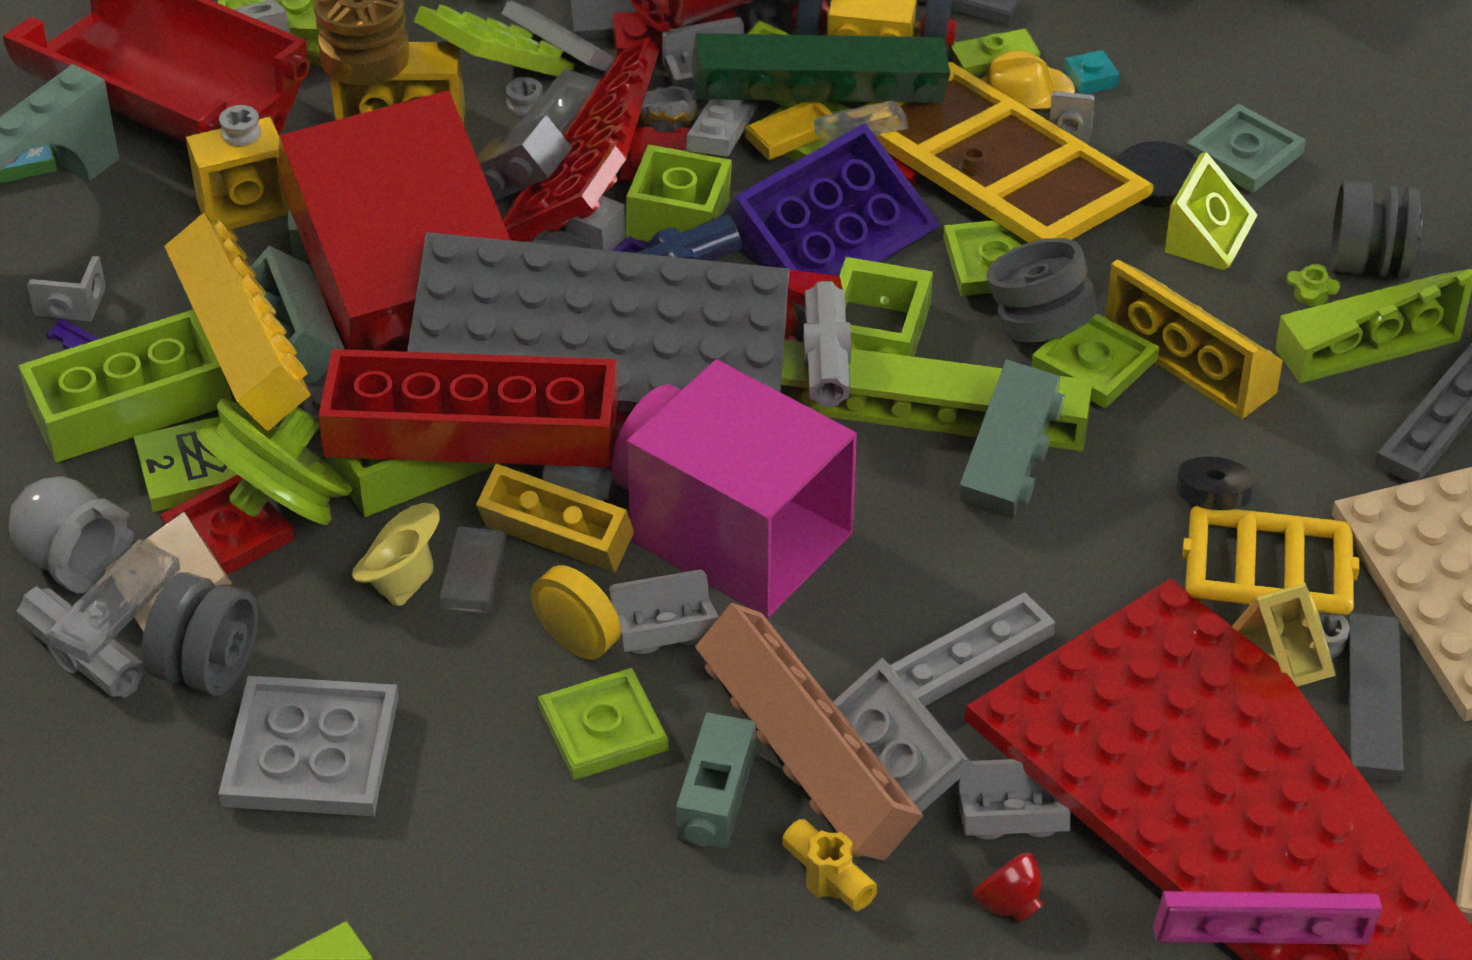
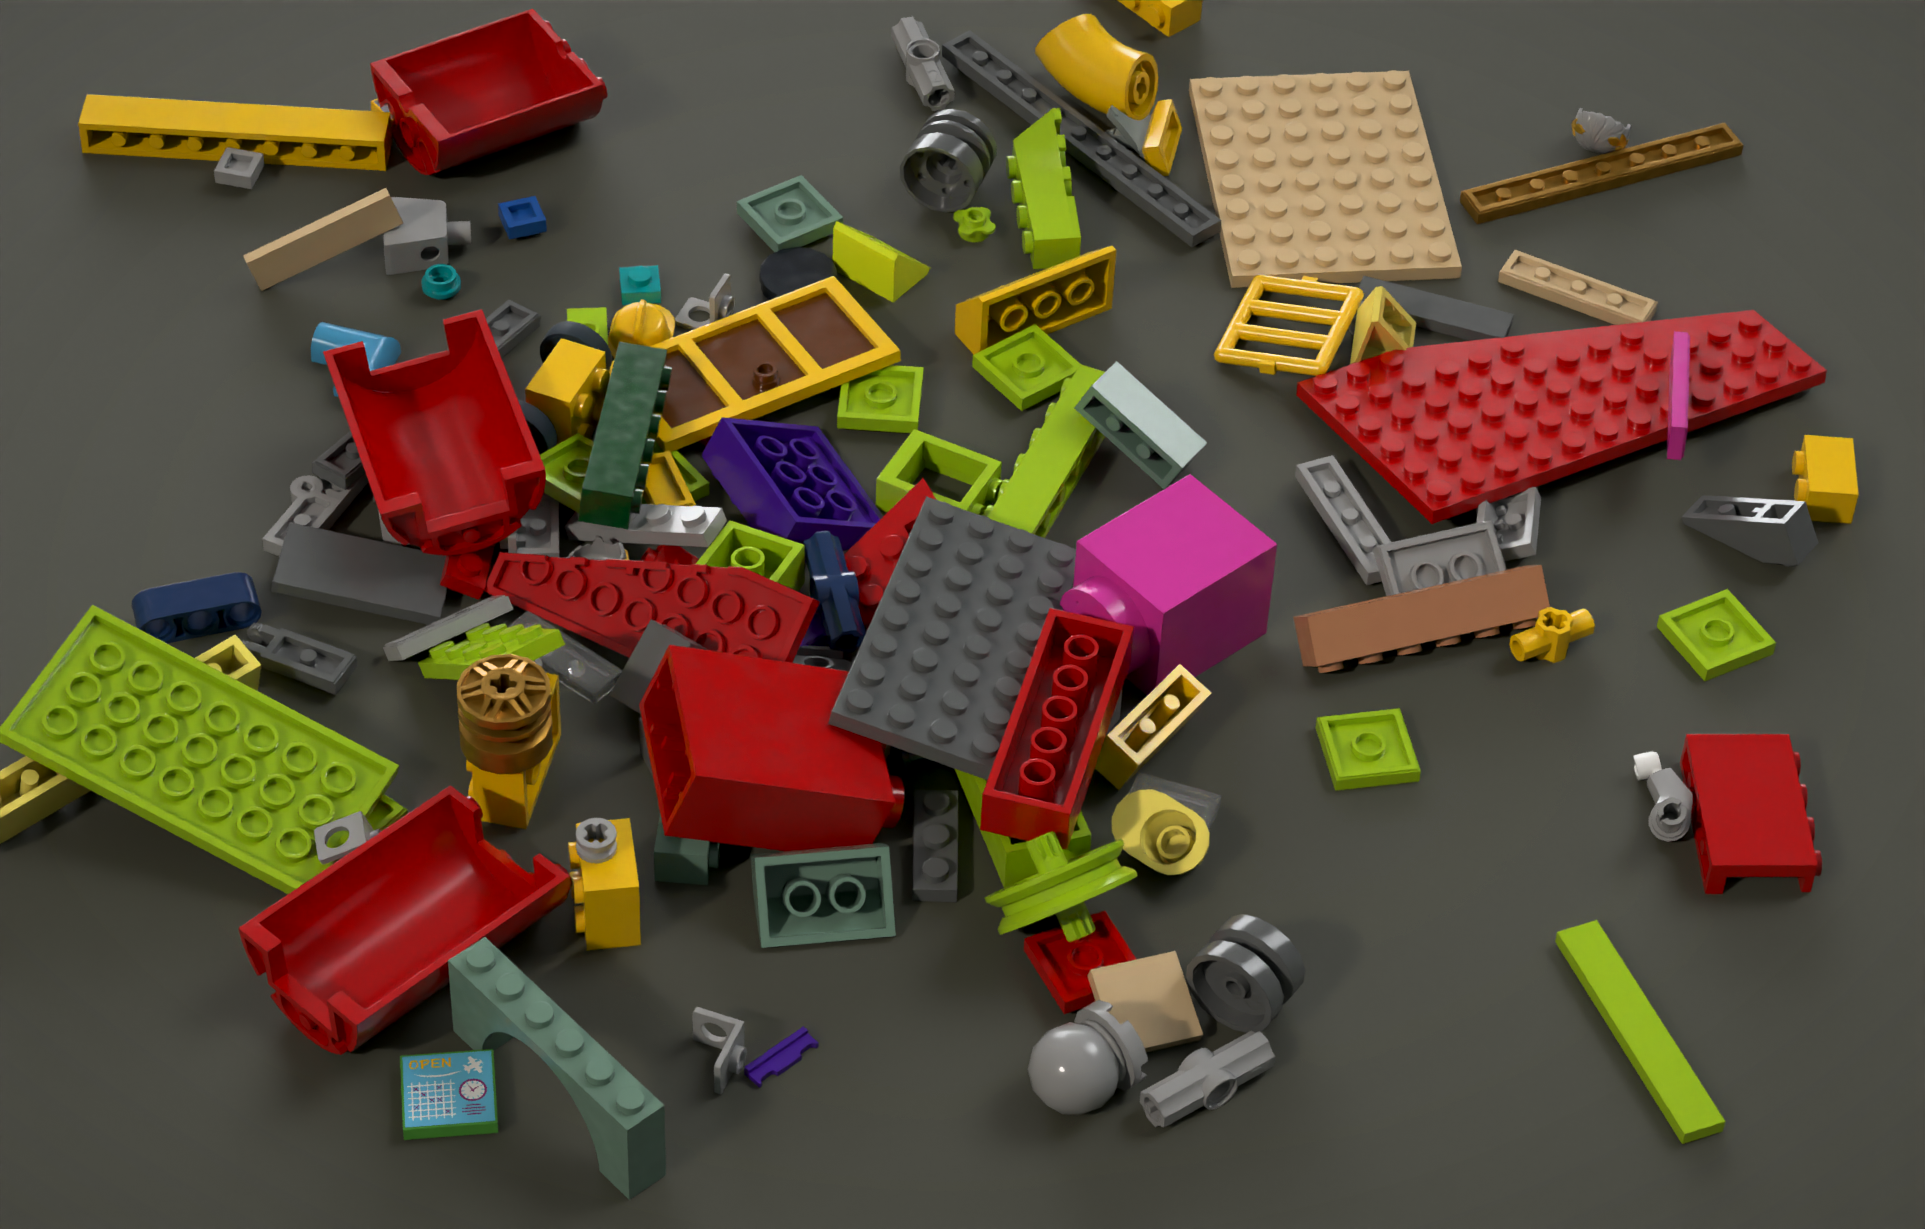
camera: 80 degrees left, 0 degrees up
(113, 601) = (1190, 1031): clear tile -> none
(123, 385) = (888, 1008): lime brick -> none
(178, 464) = (982, 987): lime tile -> none
(238, 321) = (863, 886): yellow brick -> none
(309, 746) = (1365, 932): light grey plate -> none
(575, 612) = (1272, 726): yellow piece -> none
(663, 611) = (1270, 684): light grey bracket -> none
(716, 780) = (1456, 683): sand green brick -> none
(827, 344) = (1009, 501): light grey piece -> none
(879, 117) = (703, 428): clear tile -> none
(1012, 889) = (1589, 540): red brick -> none
(1042, 290) = (963, 366): dark grey wheel -> none
(1215, 483) = (1196, 334): black piece -> none

